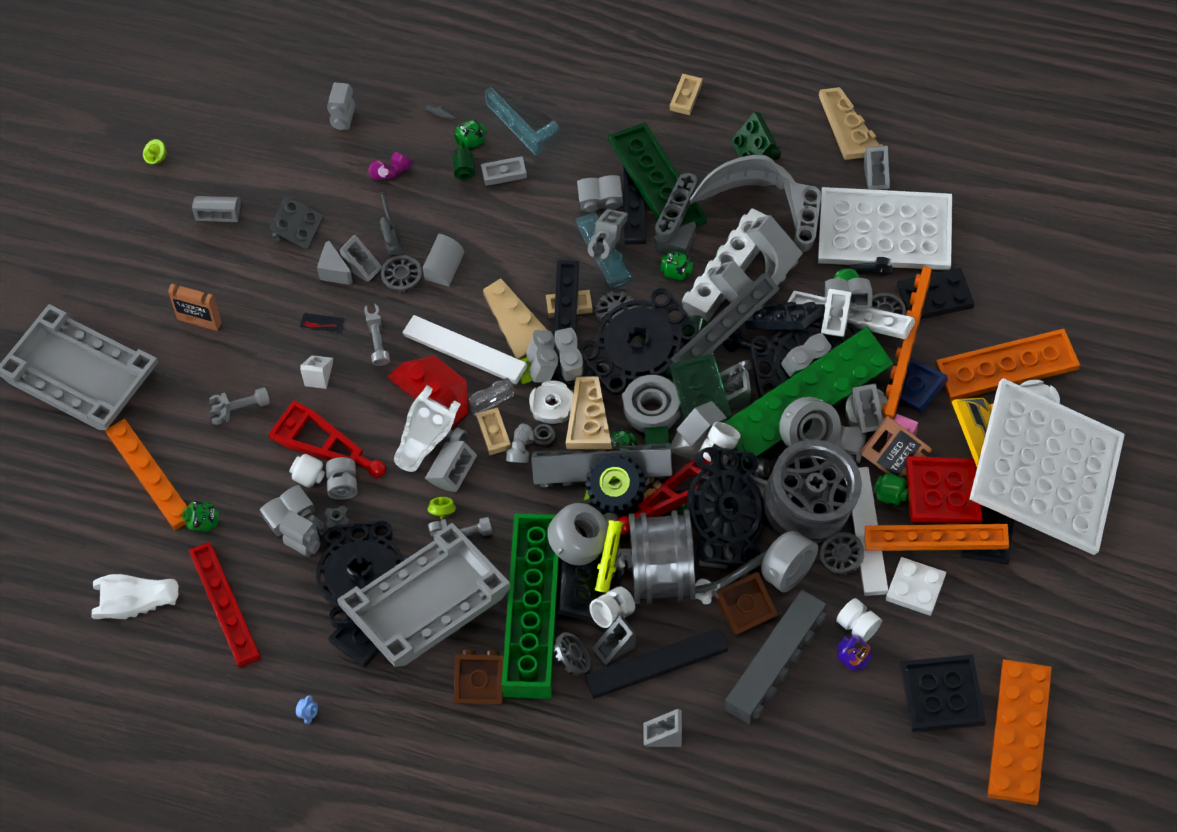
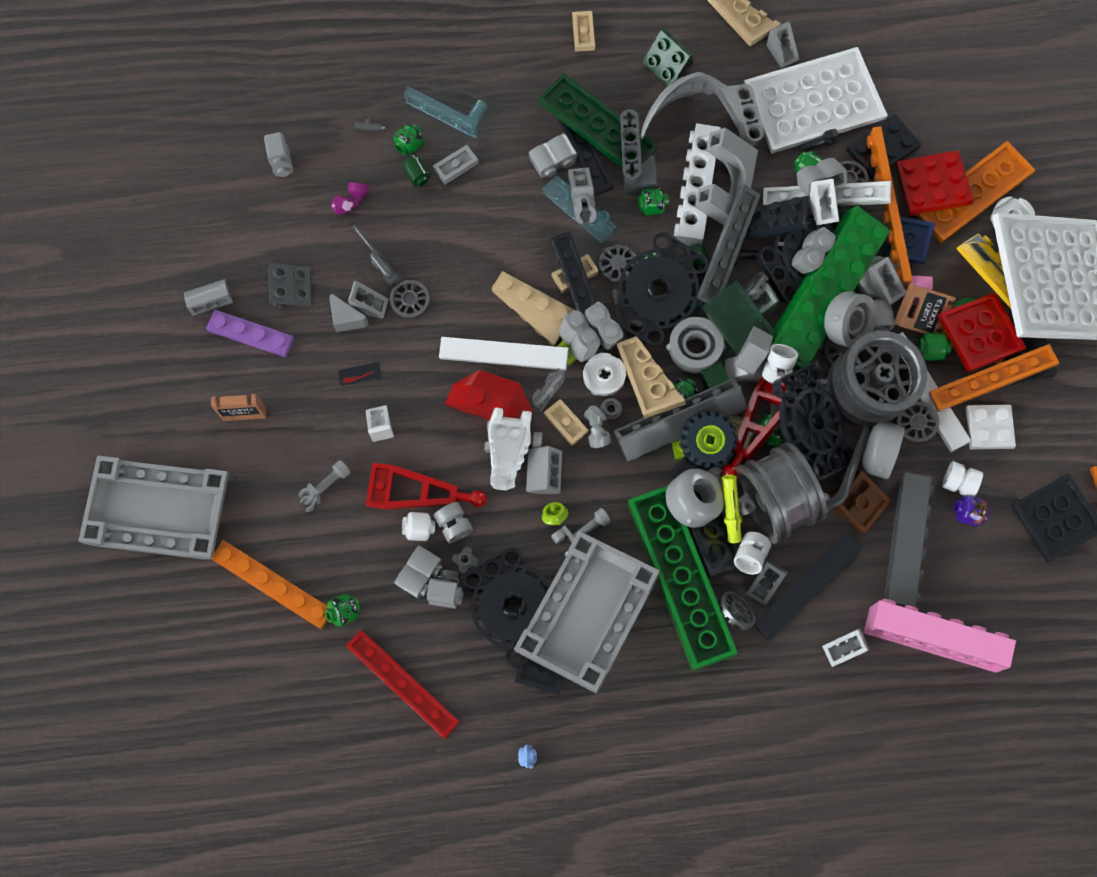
camera: 25 degrees left, 15 degrees up
(127, 595) = (313, 711): white animal -> none
(154, 152) = (121, 262): lime hat -> none
(239, 253) = (250, 333): none -> medium lavender plate
(380, 356) = (411, 359): light grey bar -> none
(443, 260) = (443, 273): light grey brick -> none
(478, 678) = (665, 664): reddish brown plate -> none
(760, 750) = (940, 636): none -> bright pink brick
(967, 341) = (934, 183): none -> red plate

